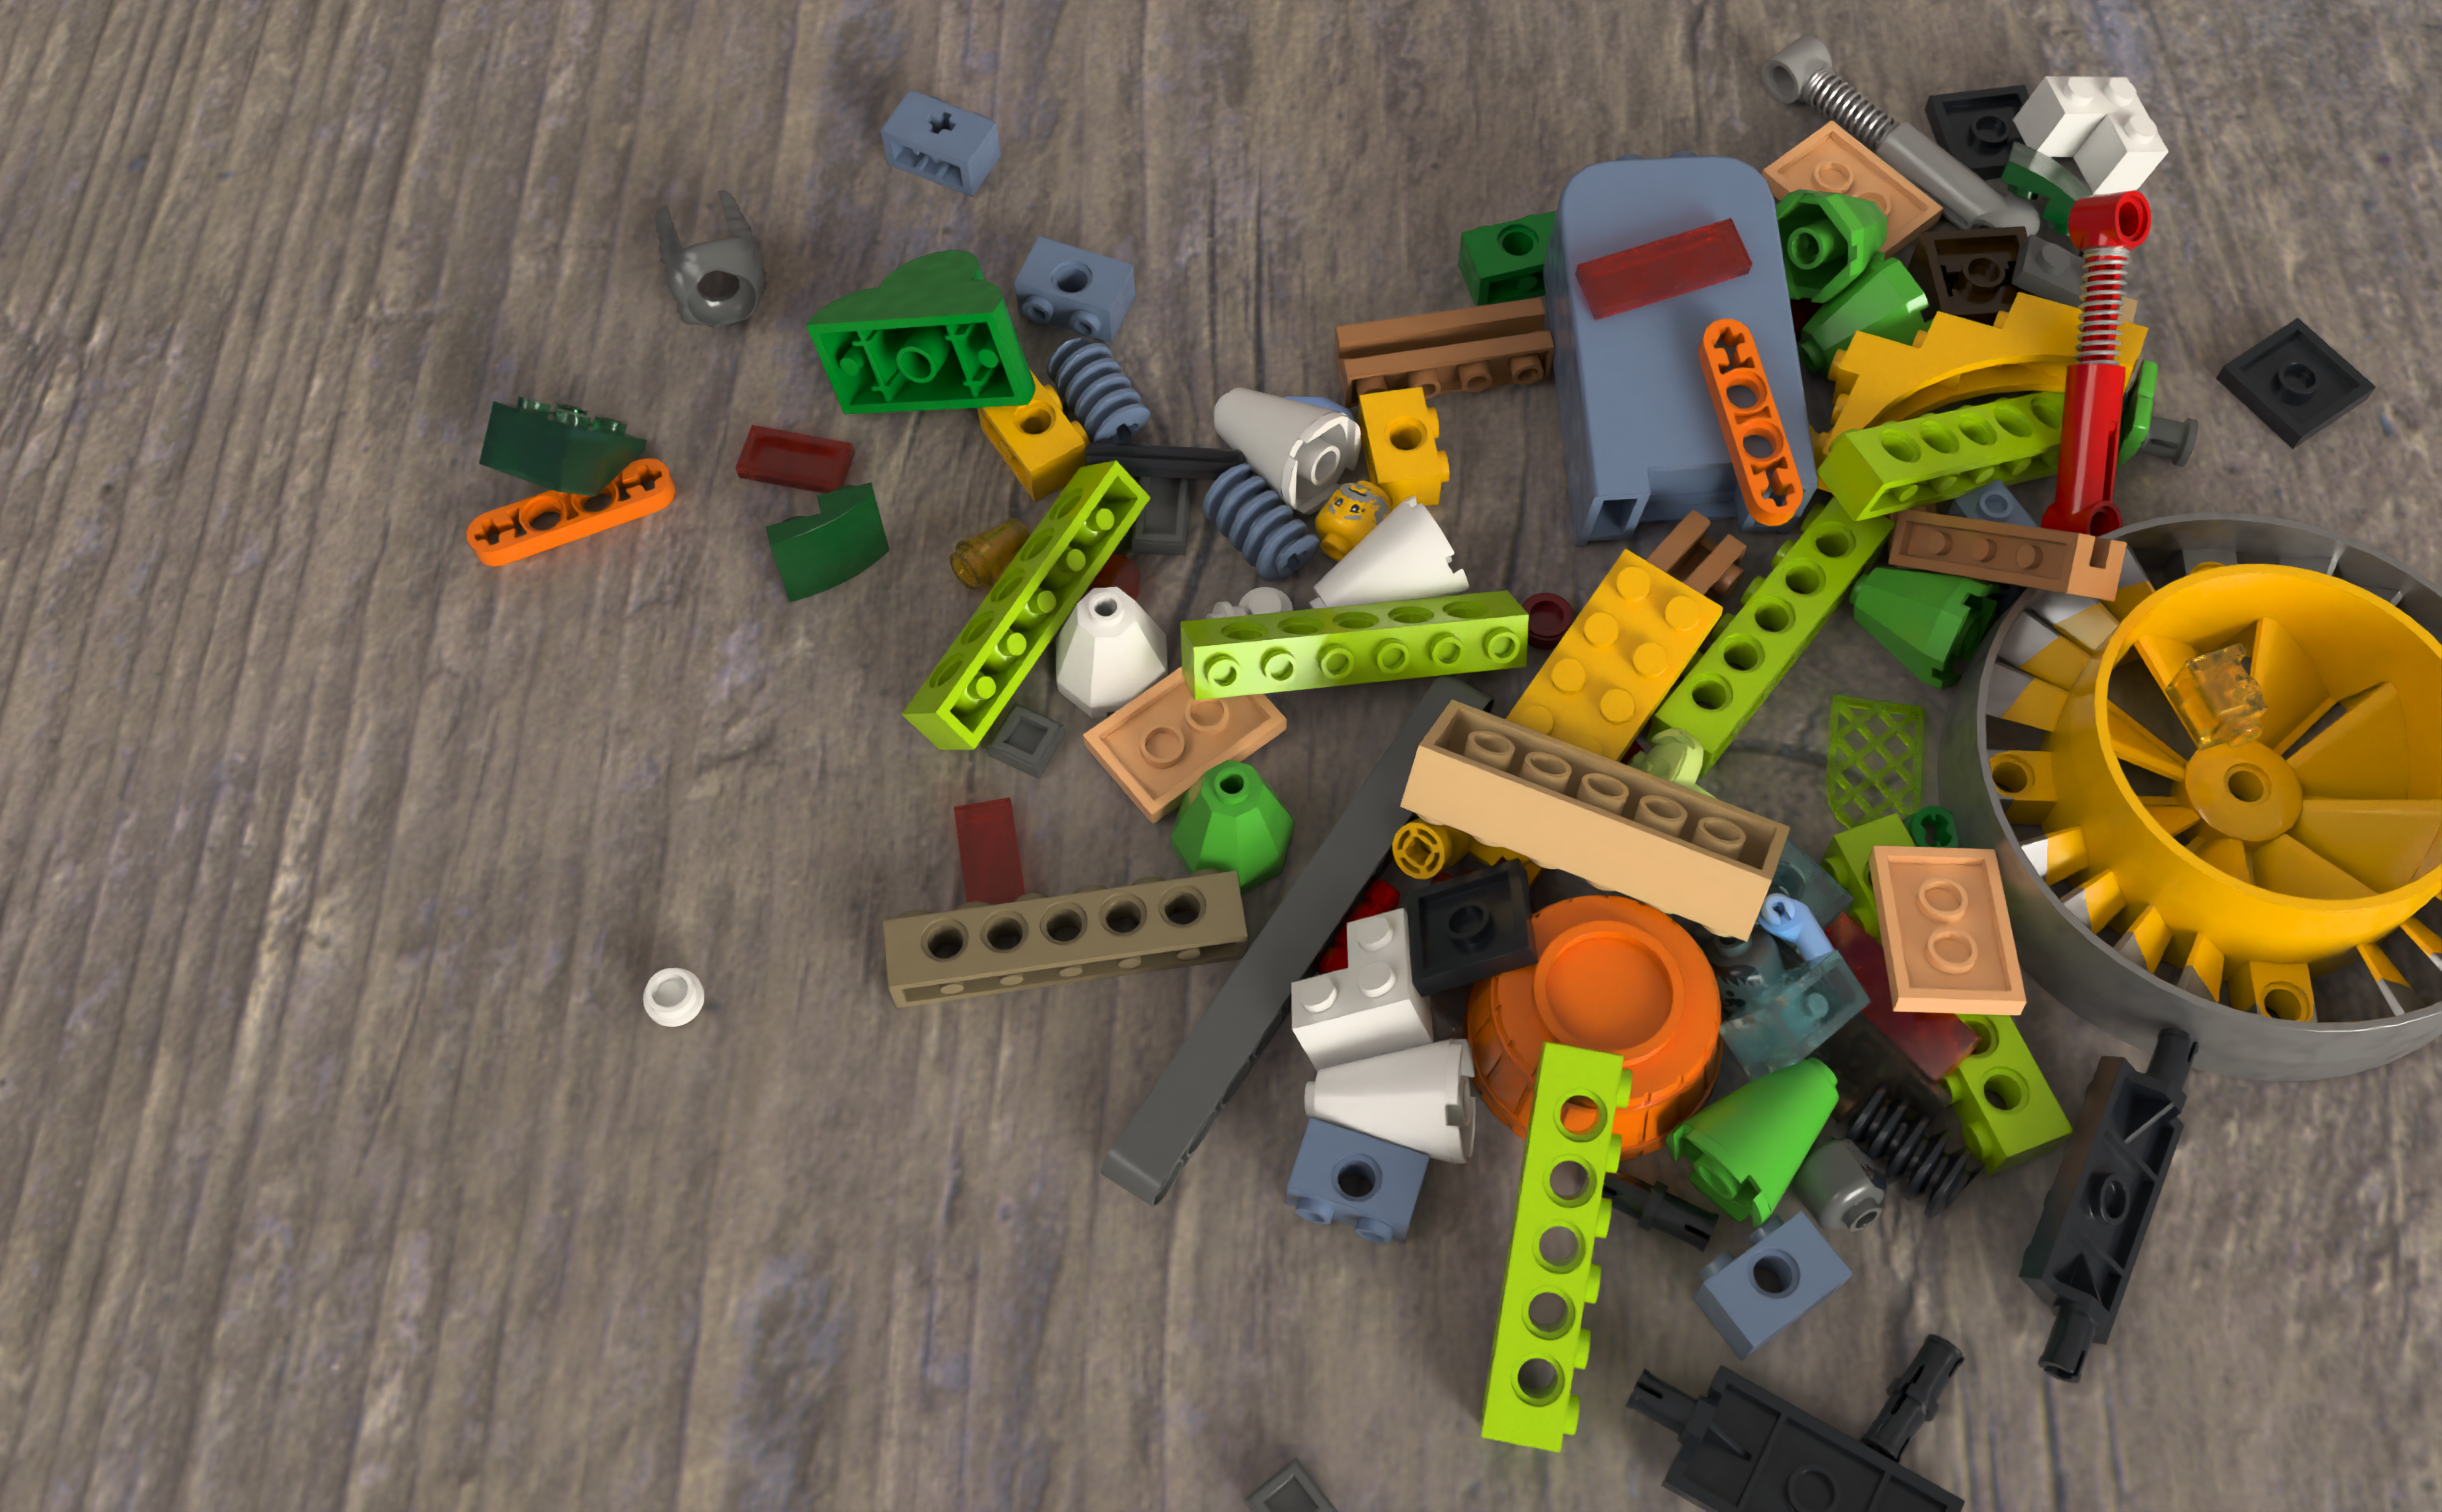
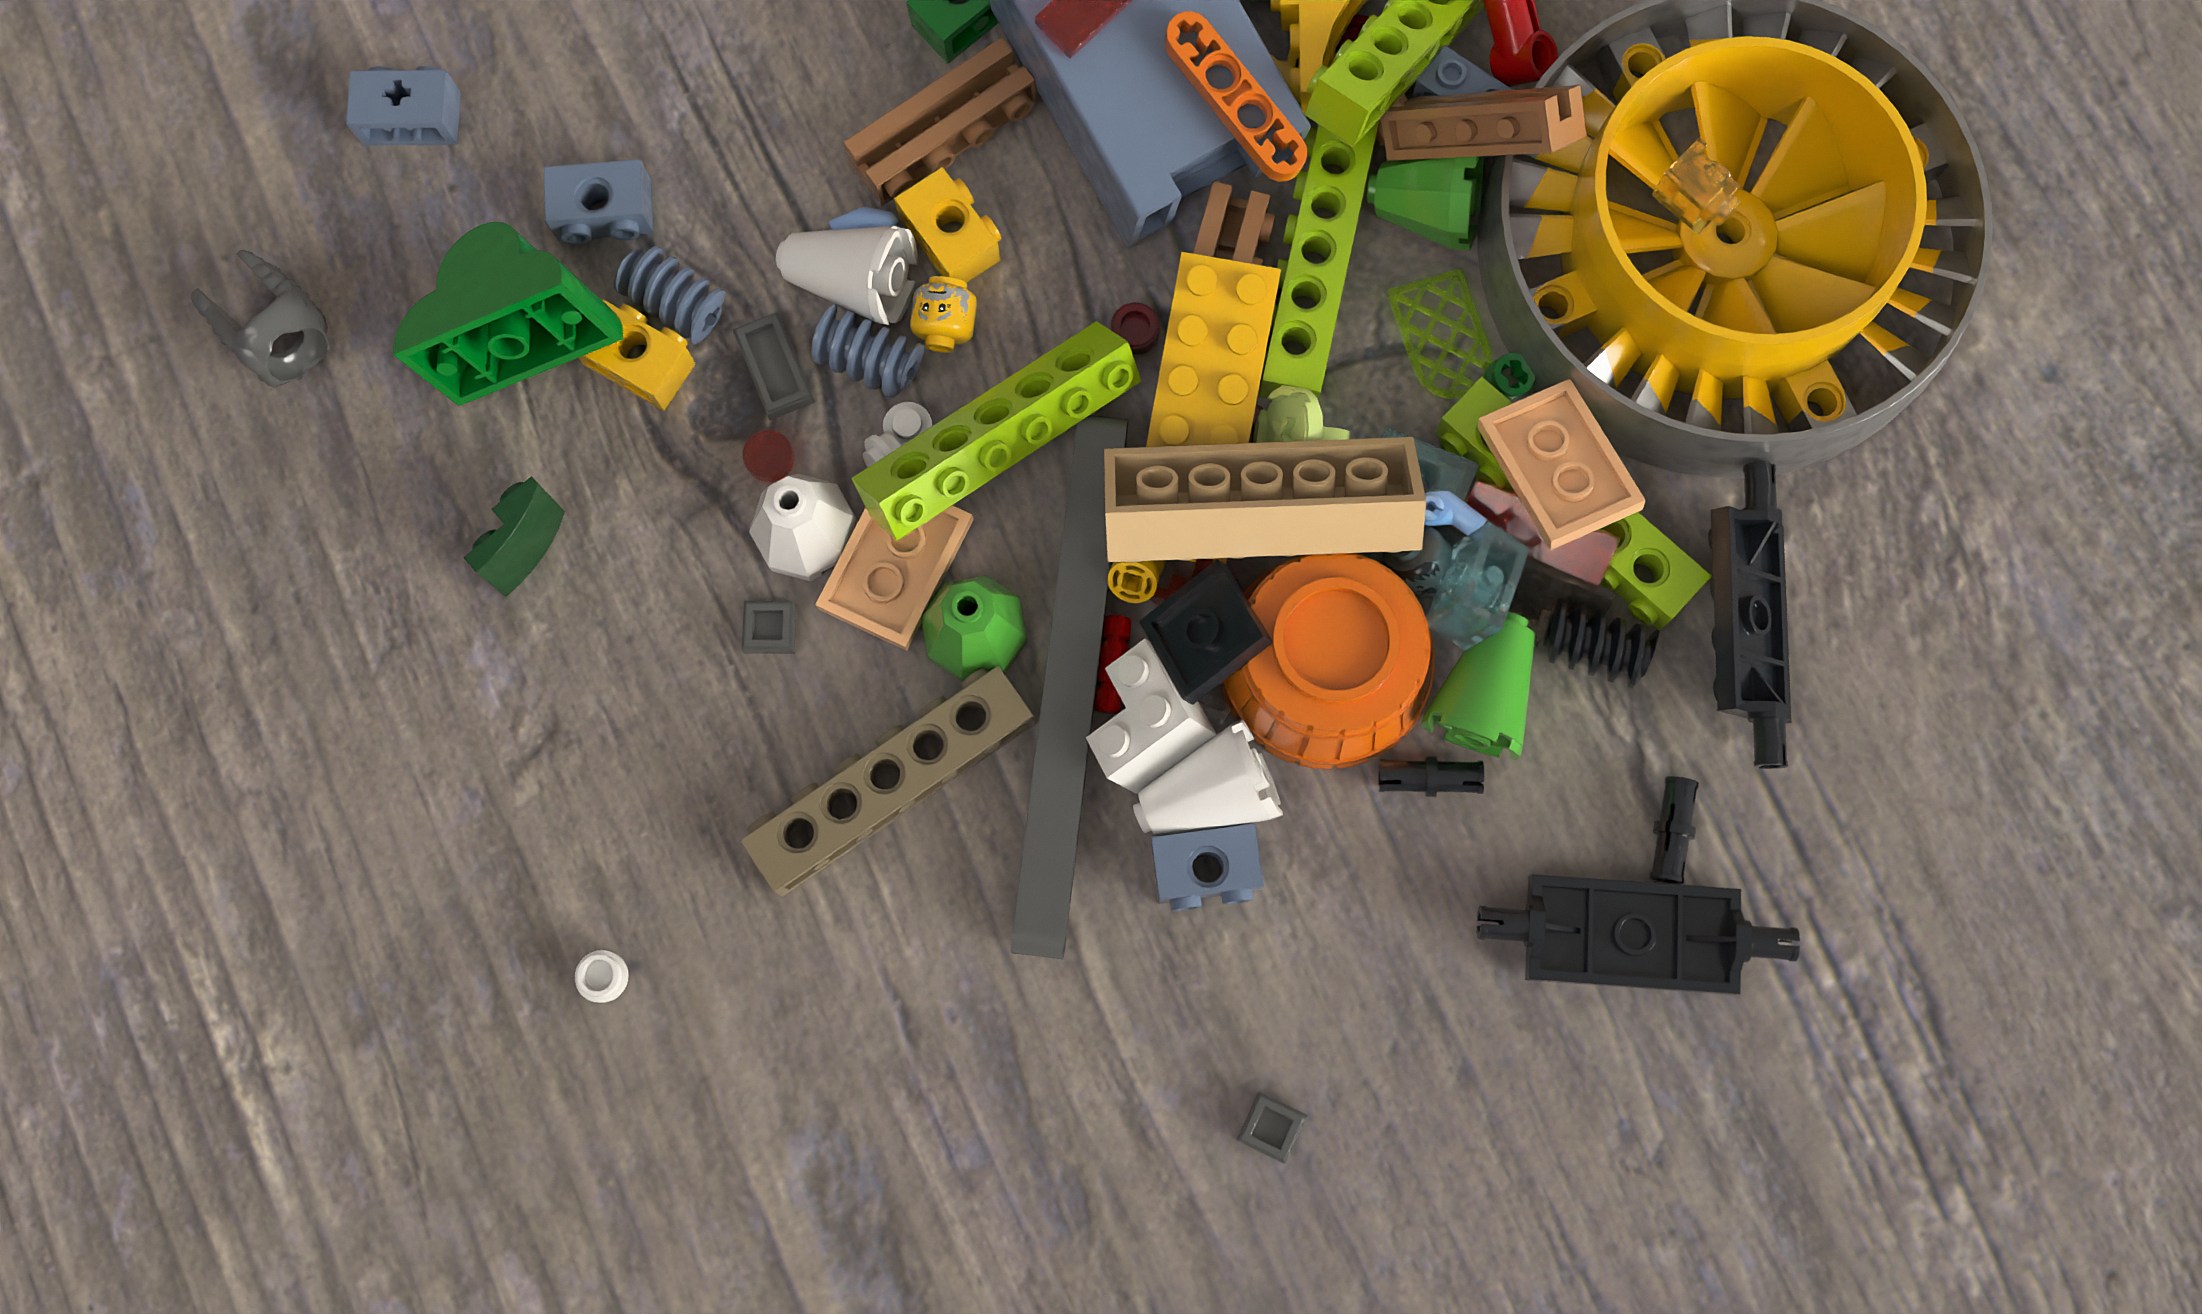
camera: 25 degrees left, 15 degrees up
(557, 446) = (231, 557): clear green slope -> none
(574, 519) = (279, 610): orange beam -> none
(795, 460) = (440, 468): clear red tile -> none
(987, 554) = (653, 480): clear yellow cone -> none
(989, 851) = (791, 739): clear red tile -> none
(1026, 607) = (712, 514): lime brick -> none
(1165, 460) = (757, 331): black axle -> none
(1395, 562) = (994, 343): white cone -> none
(1509, 1408) = (1421, 976): lime brick -> none
(1751, 1316) = (1565, 777): sand blue brick -> none
(1840, 1185) = (1560, 695): dark grey head -> none

